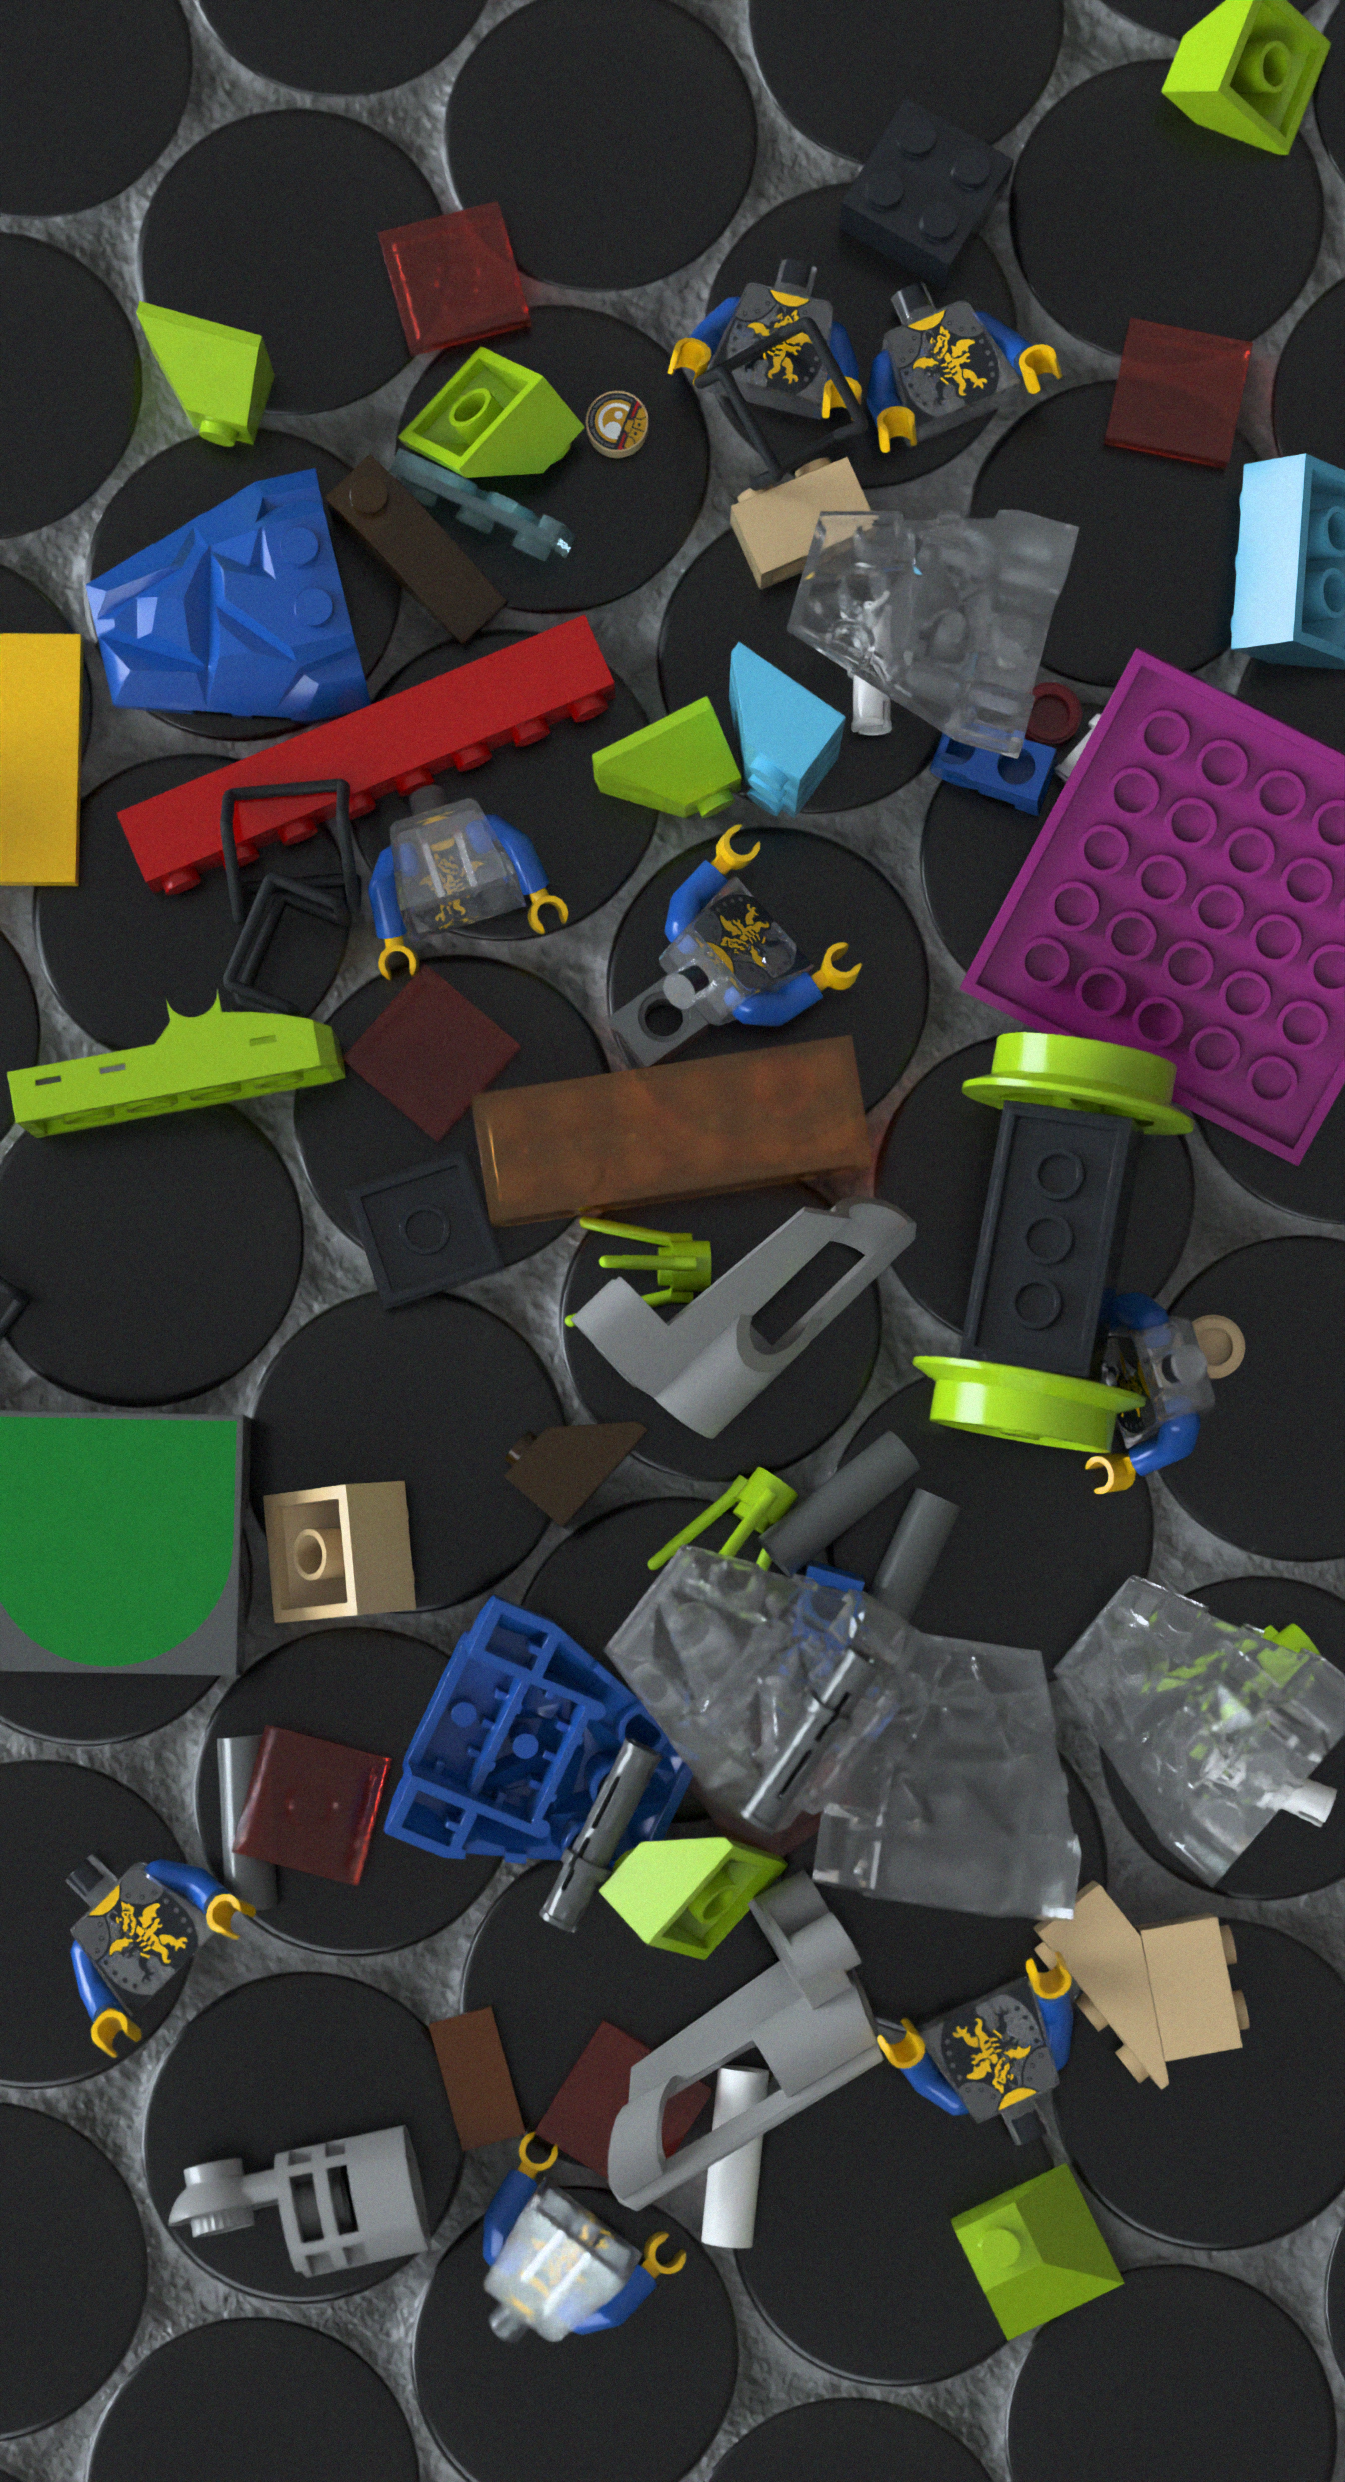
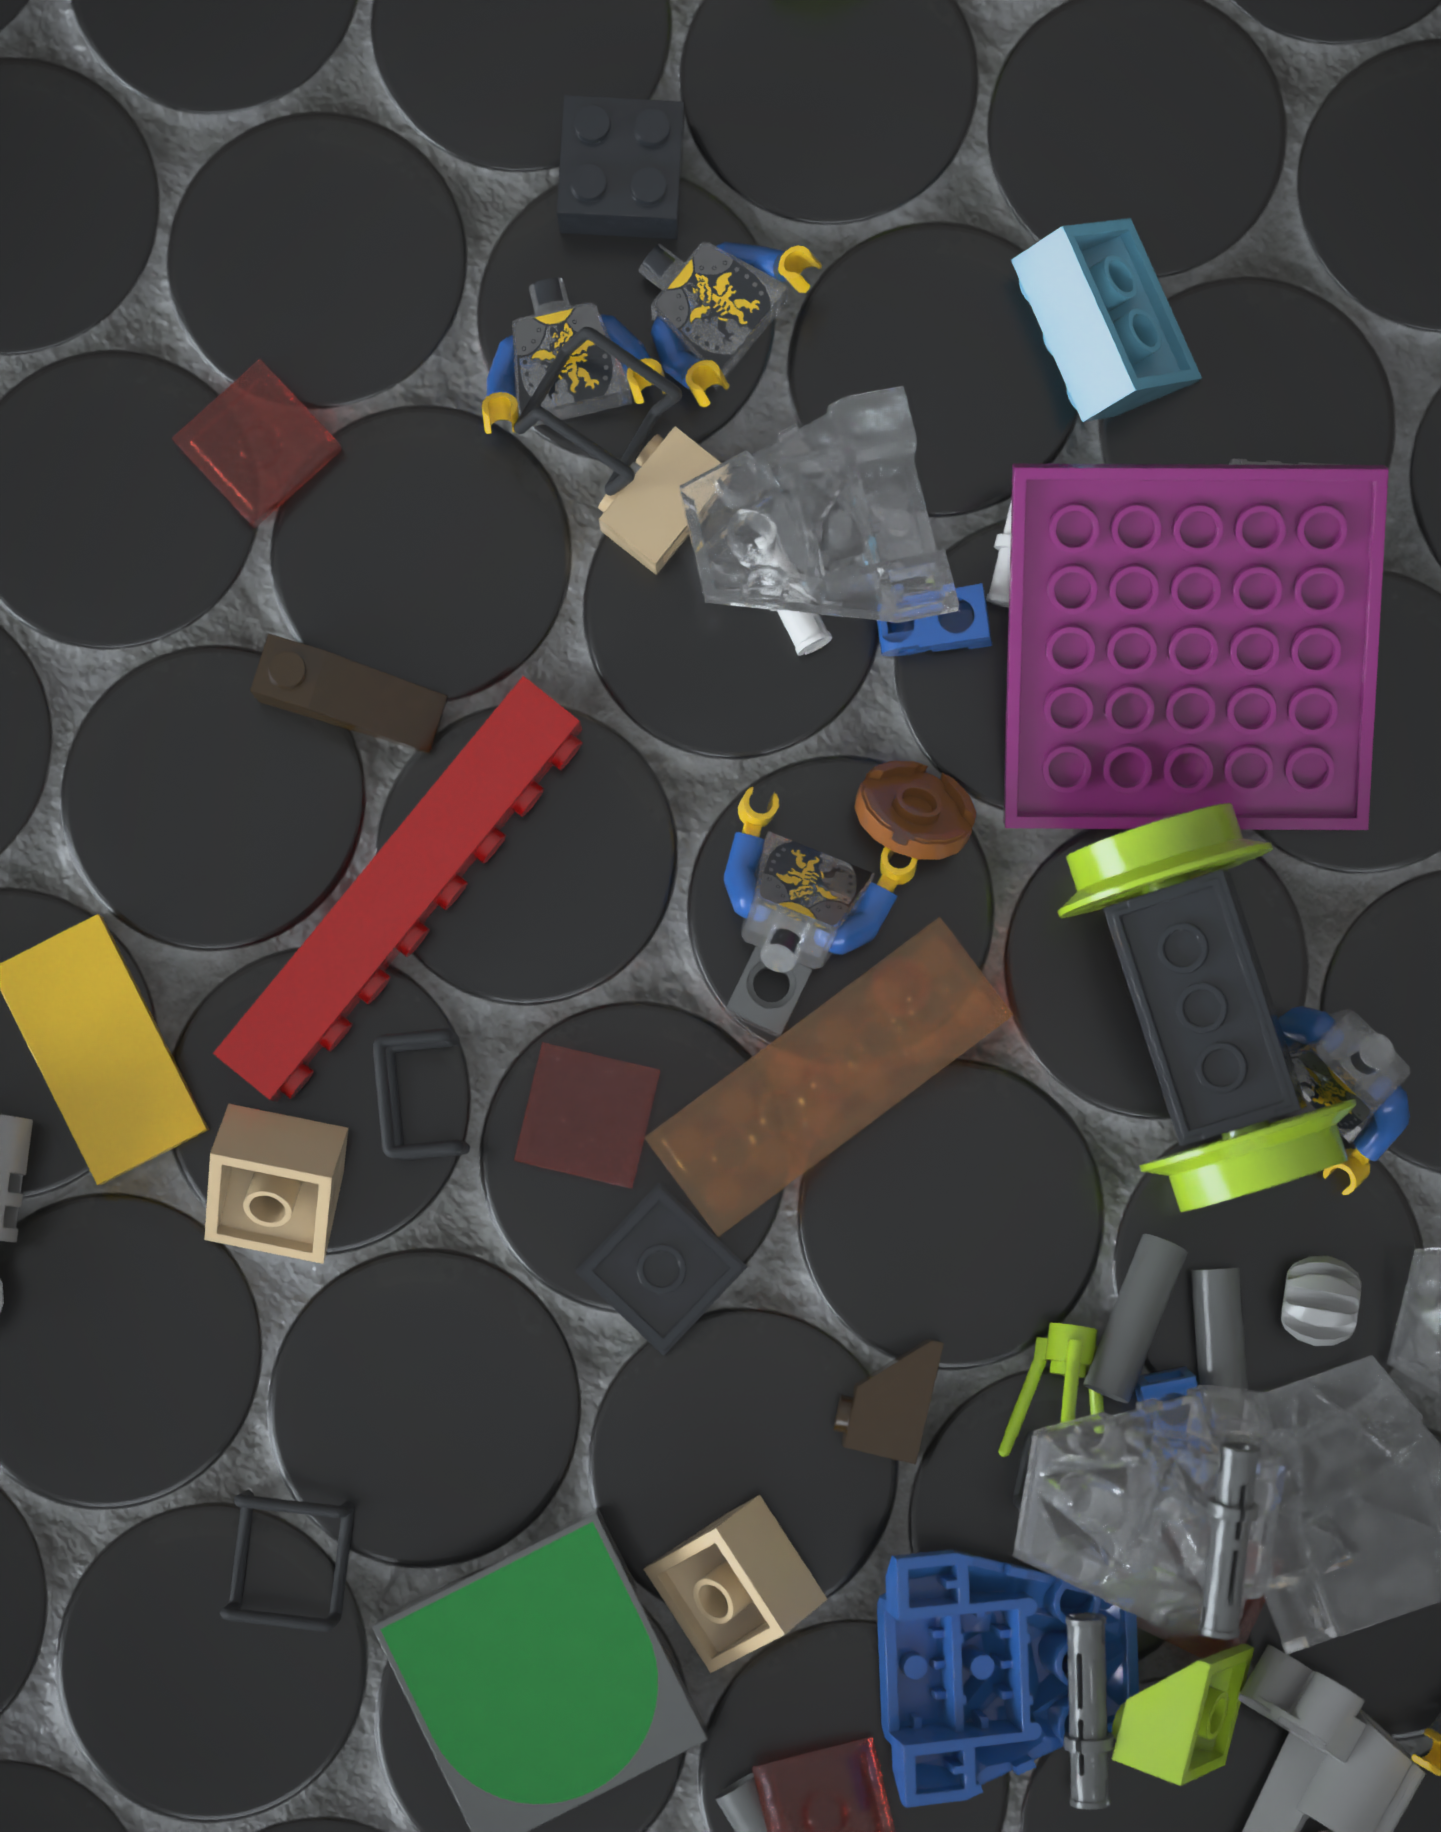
camera: 30 degrees left, 0 degrees up
(111, 962) = (274, 1183): none -> tan slope
(189, 1067) = (390, 1238): lime piece -> none
(213, 370) = (94, 631): lime slope -> none
(235, 613) = (221, 826): blue wedge -> none
(349, 878) = (351, 1060): black piece -> none
(451, 871) = (524, 953): clear torso -> none
(482, 509) = (384, 629): clear light blue wing -> none
(494, 421) = (356, 550): lime slope -> none
(617, 424) = (461, 496): tile -> none
(672, 765) = (667, 764): lime slope -> none
(681, 1264) = (896, 1186): lime plant -> none
(709, 1355) = (964, 1250): light grey panel -> none
(781, 733) = (742, 693): medium azure slope -> none
(882, 927) = (915, 810): none -> dark orange tile
(1020, 1577) = (1321, 1300): none -> light grey piece
(1054, 715) = (964, 550): dark red tile -> none
(1178, 393) = (921, 226): clear red tile -> none
(1221, 1344) = (1381, 1012): tan tile -> none

